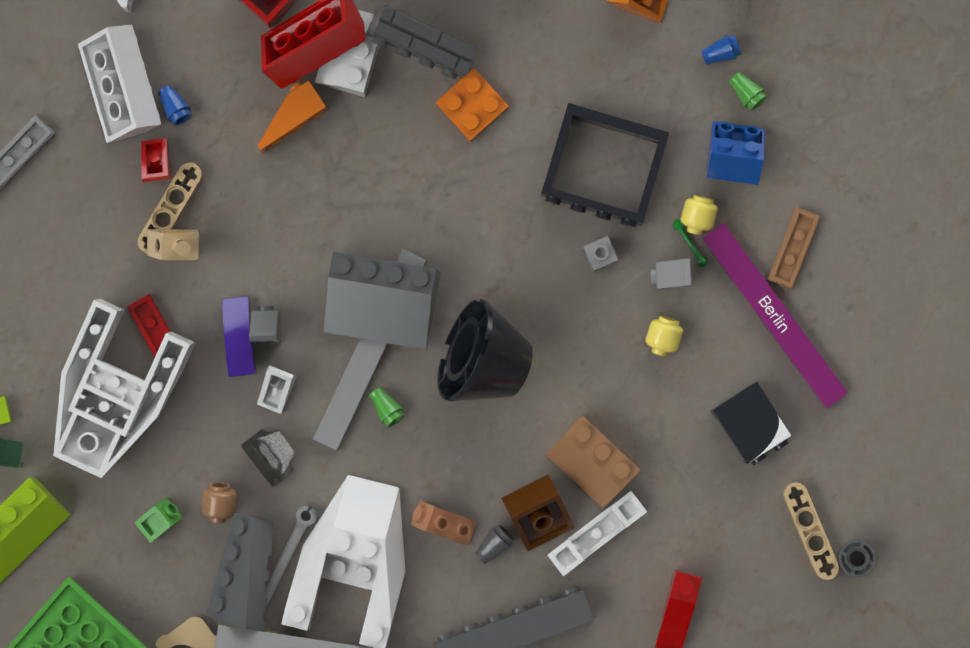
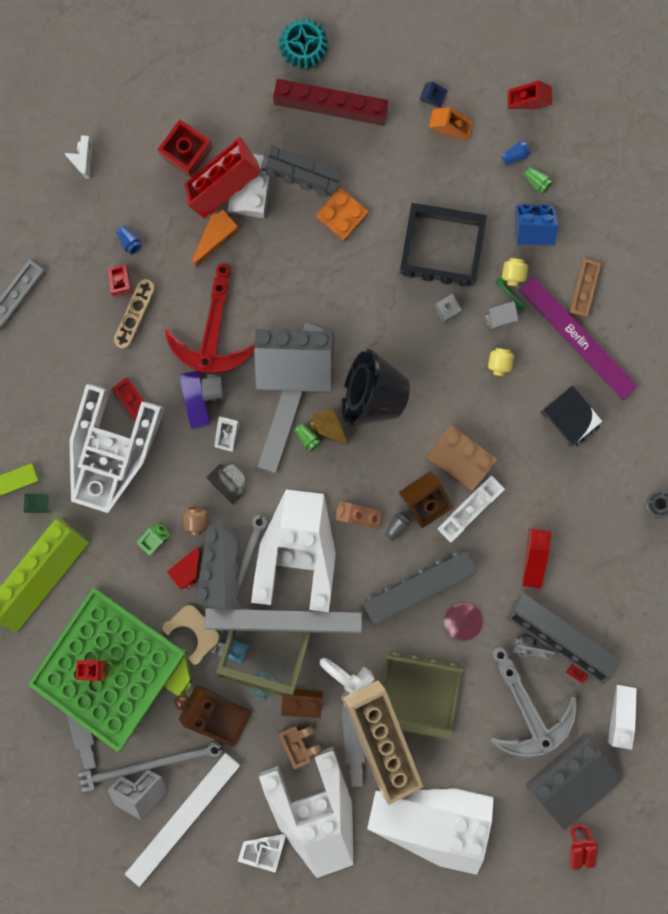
camera: 10 degrees left, 0 degrees up
(119, 83) = (86, 228): white slope -> none
(174, 244) = (139, 338): tan torso -> none
(198, 569) = (186, 570): none -> red slope
(267, 264) = (209, 345): none -> red piece
(416, 395) = (328, 426): none -> pearl gold slope
(813, 529) = (625, 487): tan beam -> none

